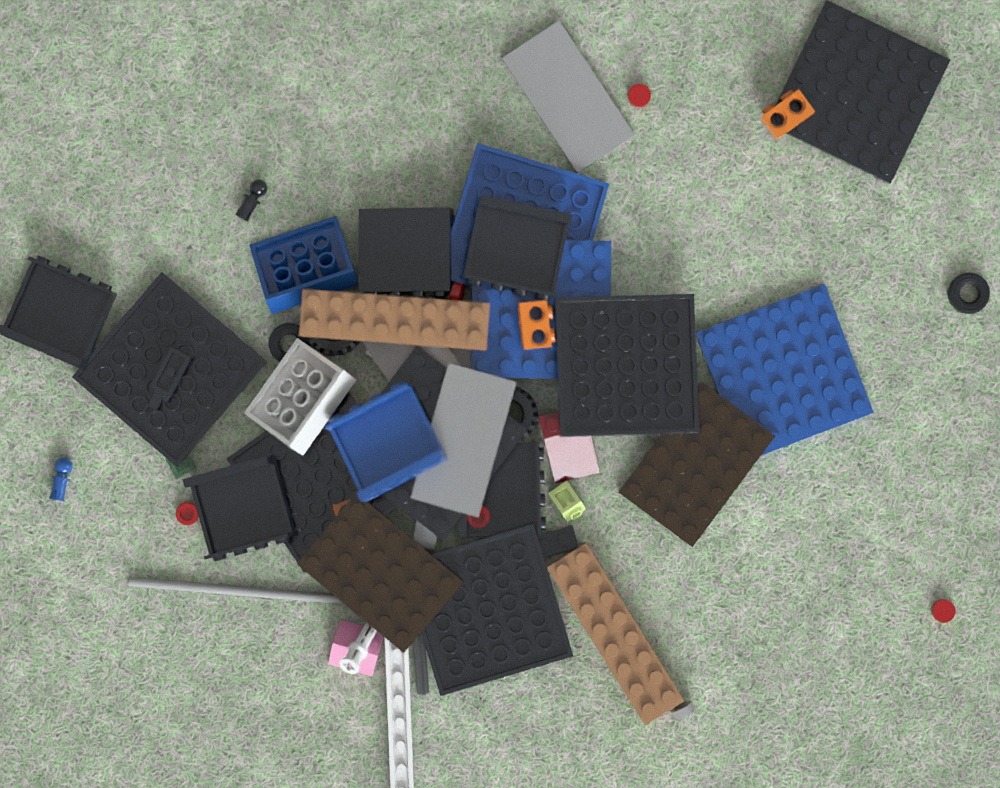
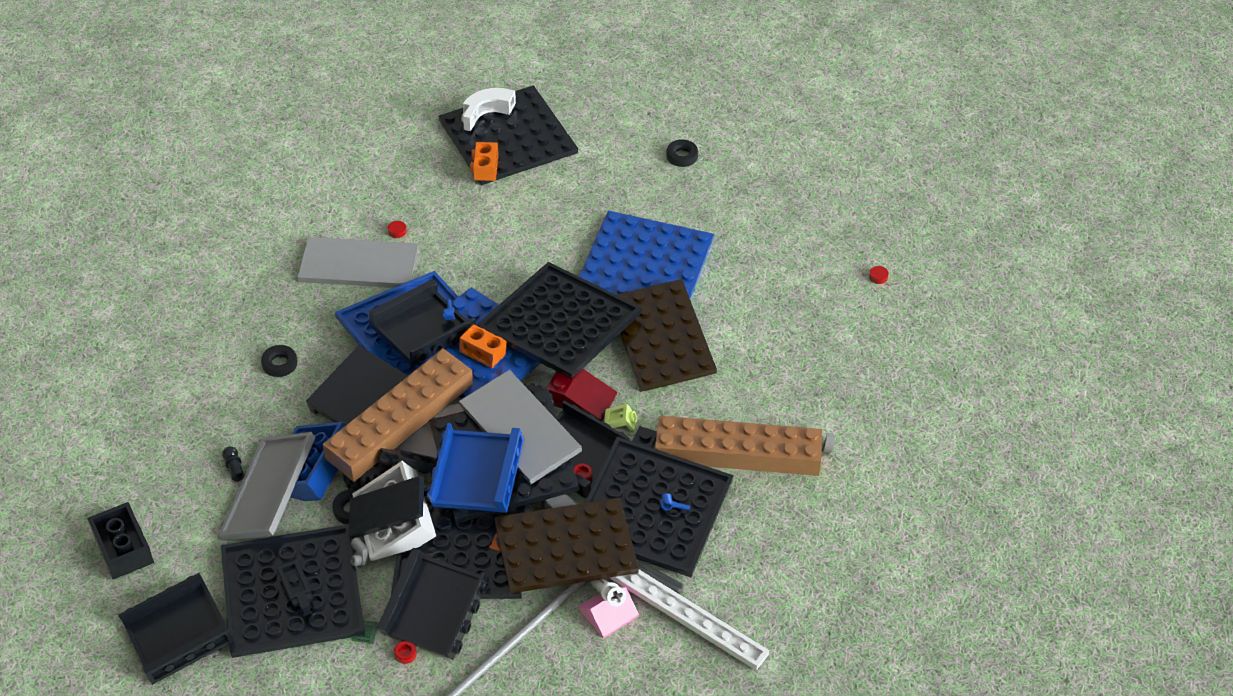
camera: 50 degrees left, 40 degrees down
(97, 185) = (120, 540): none -> black brick
(243, 401) = (361, 553): none -> light grey arm
(246, 257) = (266, 487): none -> light grey tile
(292, 393) = (386, 507): none -> black tile
(359, 366) = (416, 461): none -> black hinge
(388, 119) = (279, 351): none -> black tyre
(492, 624) = (667, 503): none -> blue hand
(546, 263) = (448, 314): none -> blue hand
(874, 40) = (487, 101): none -> white arch

